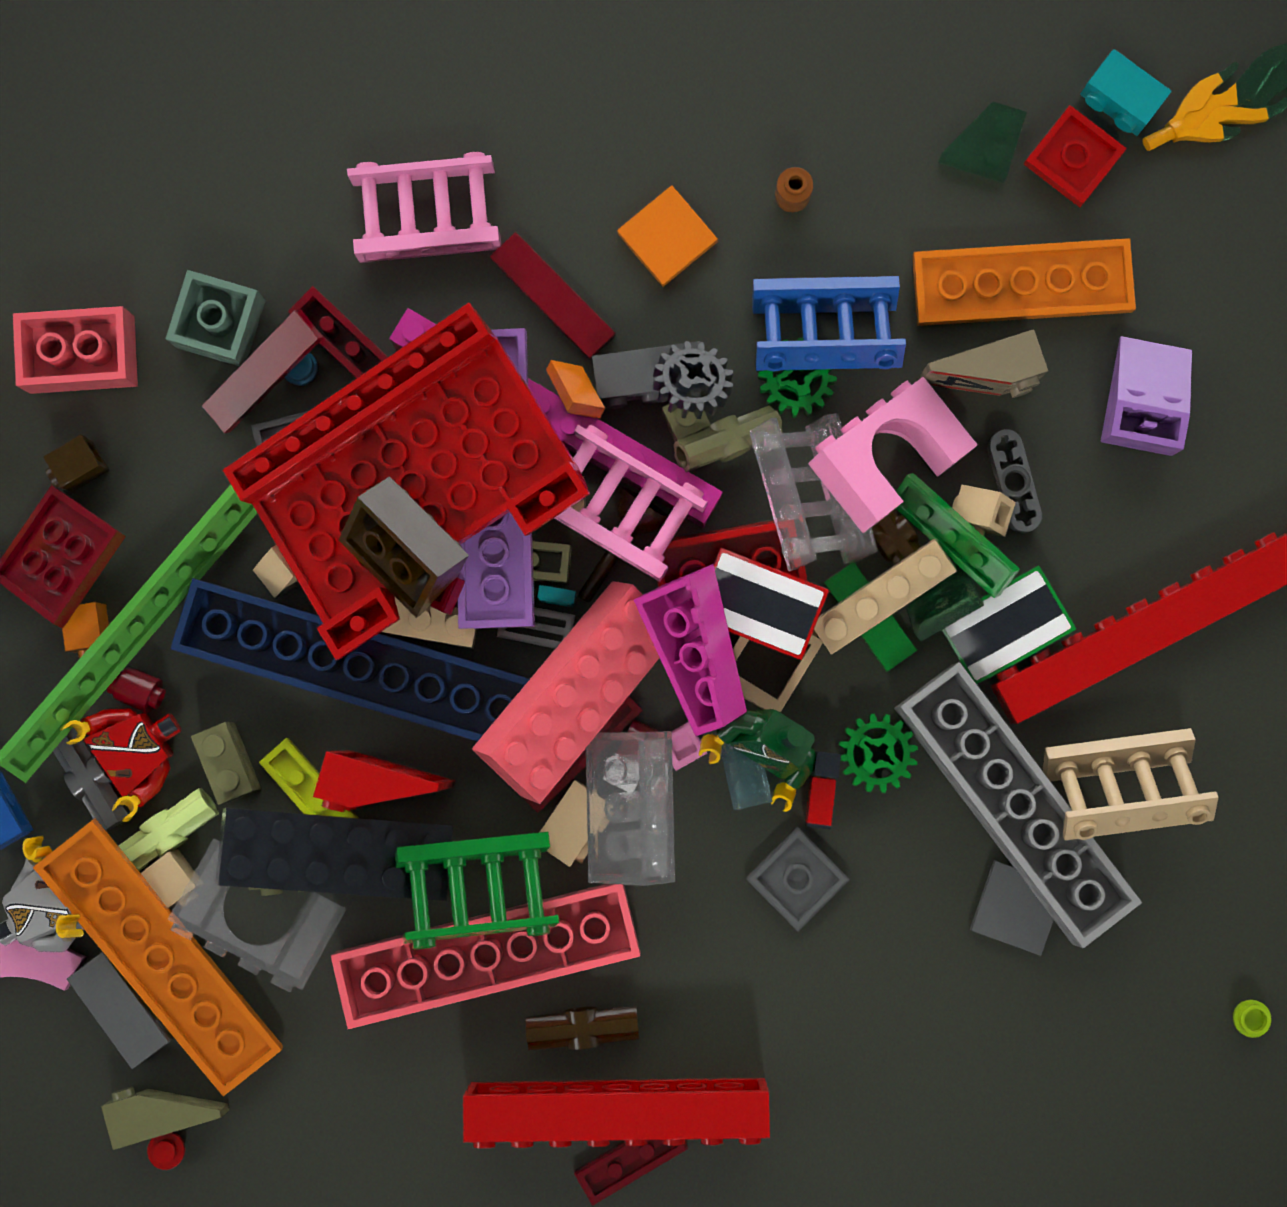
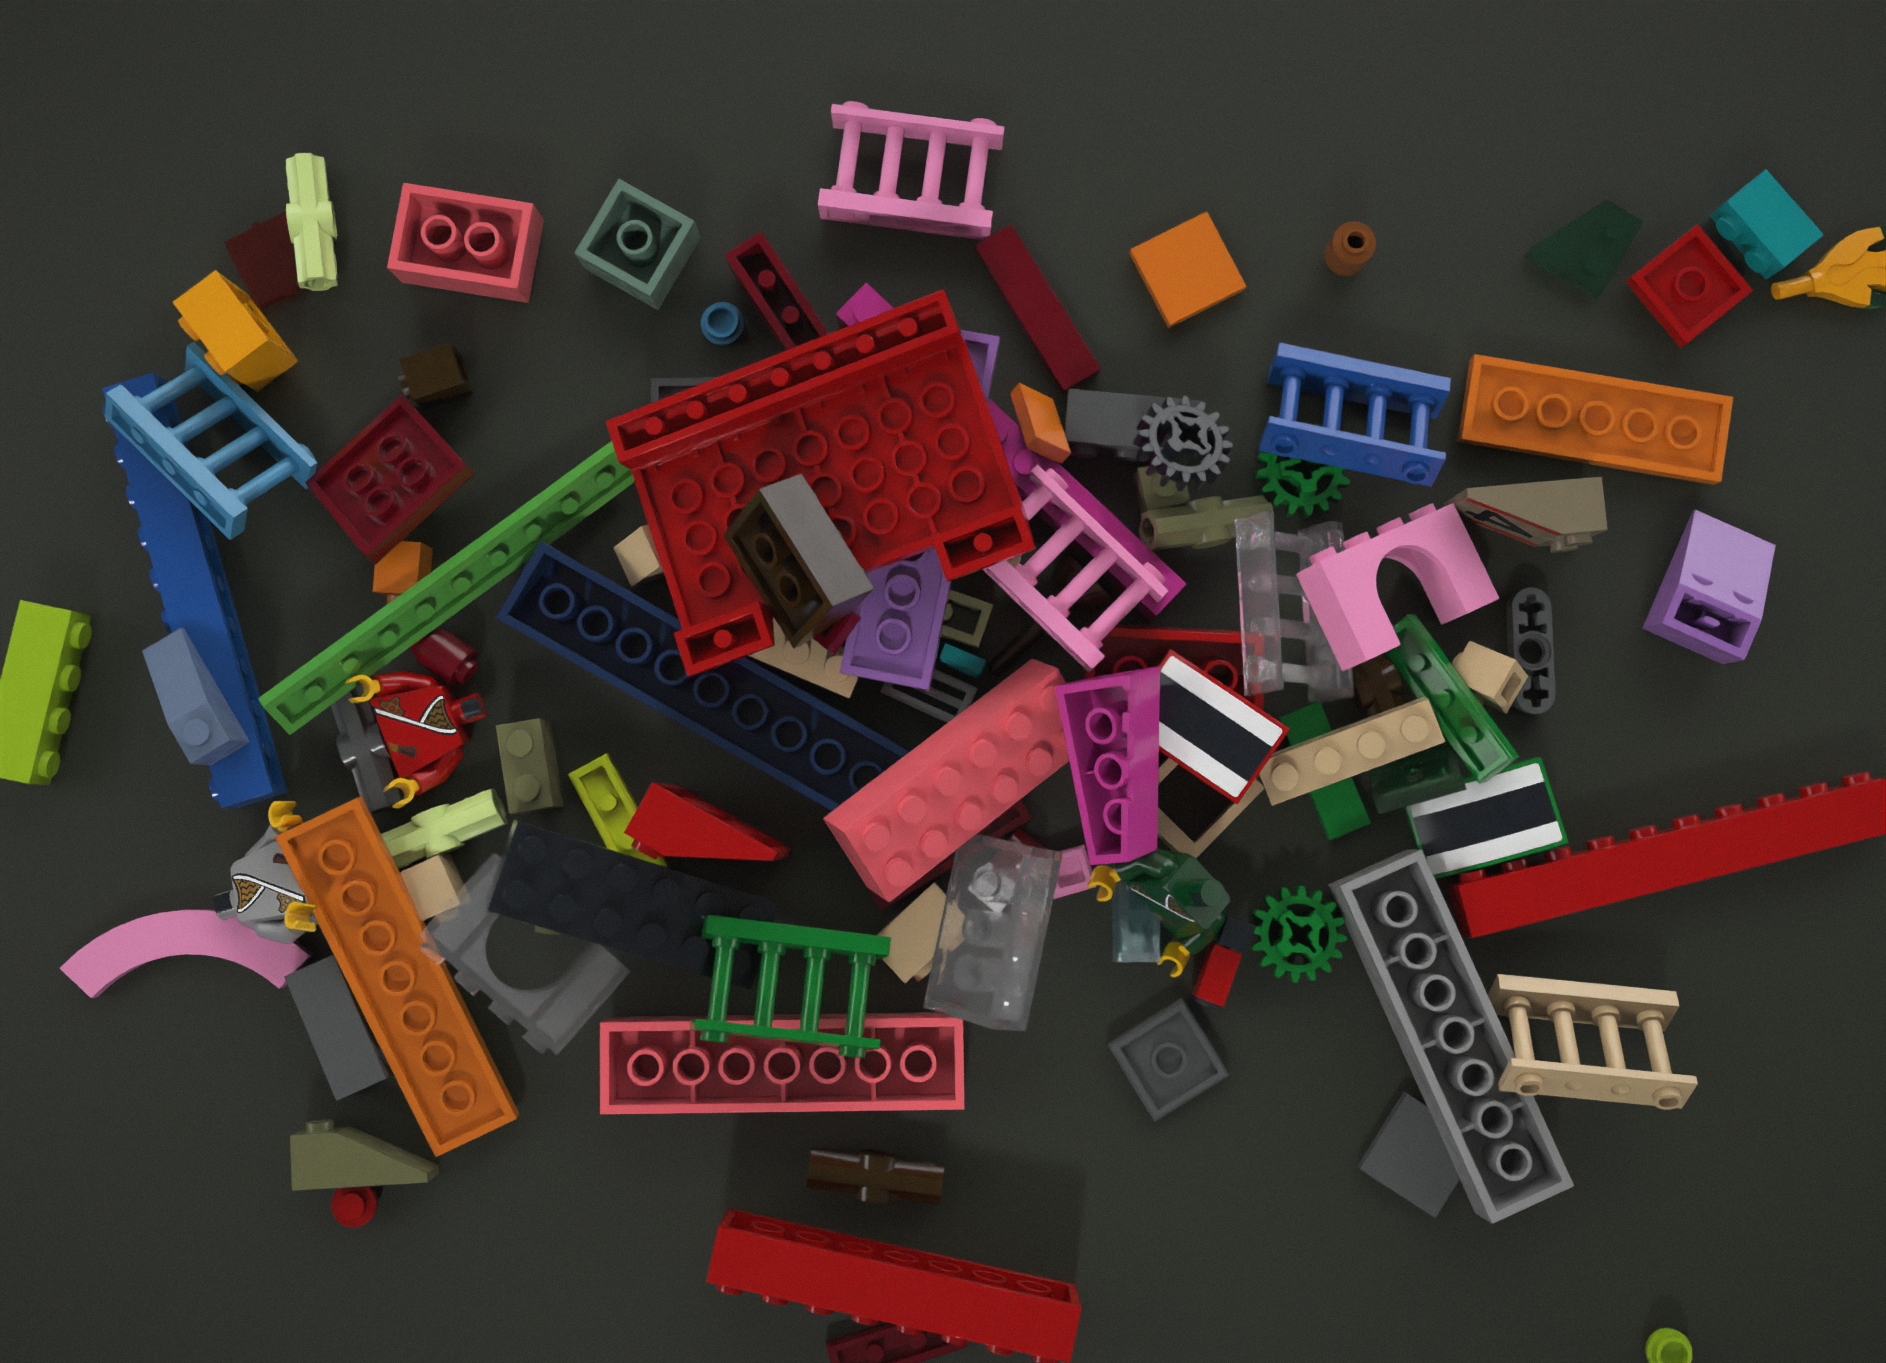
camera: 10 degrees right, 0 degrees up
(262, 371) = (679, 317): tile -> none

